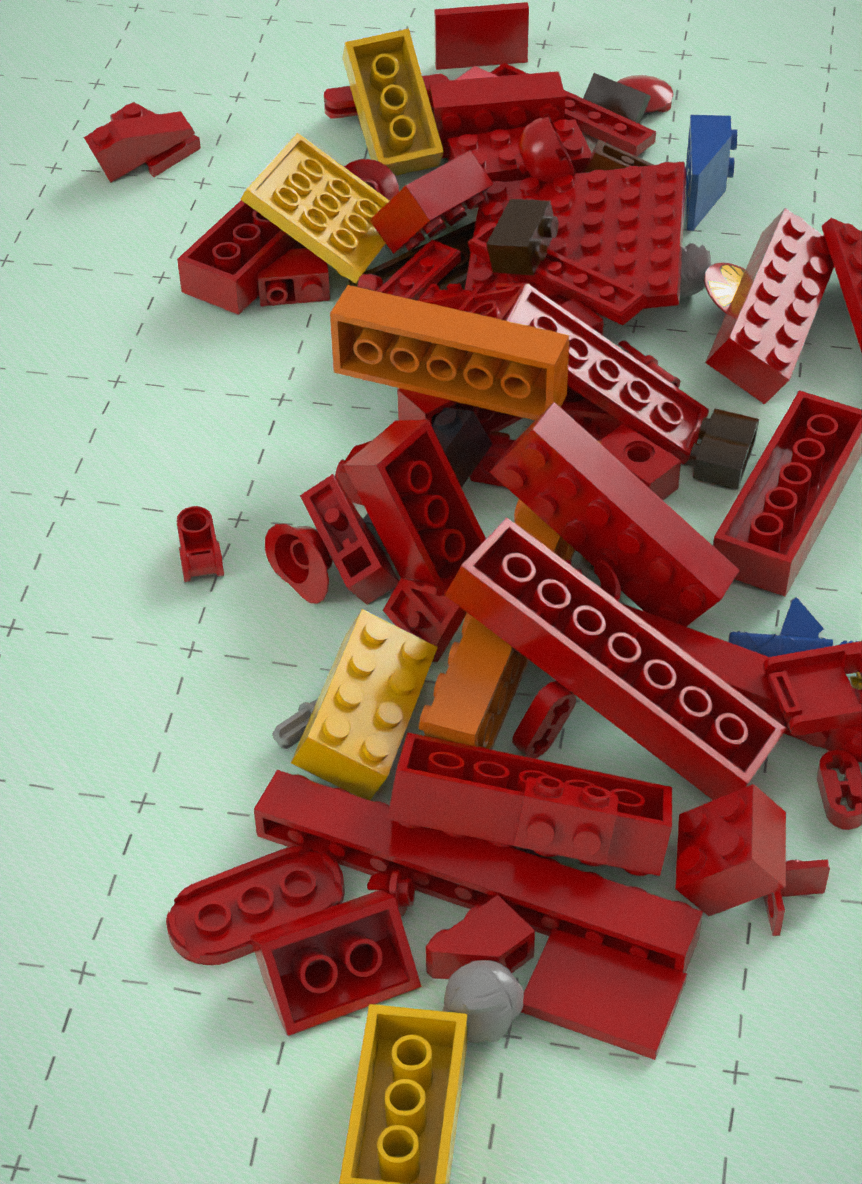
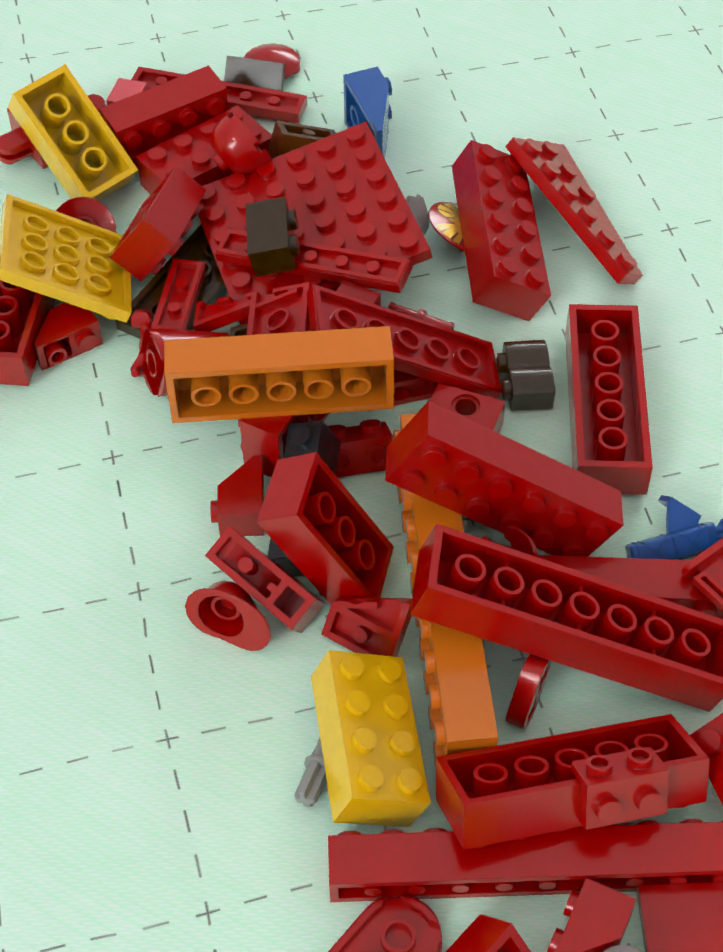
camera: 25 degrees left, 5 degrees up
(198, 544) = (127, 639): red piece -> none
(397, 886) = (490, 906): red plate -> none
(481, 35) = (108, 46): red tile -> none

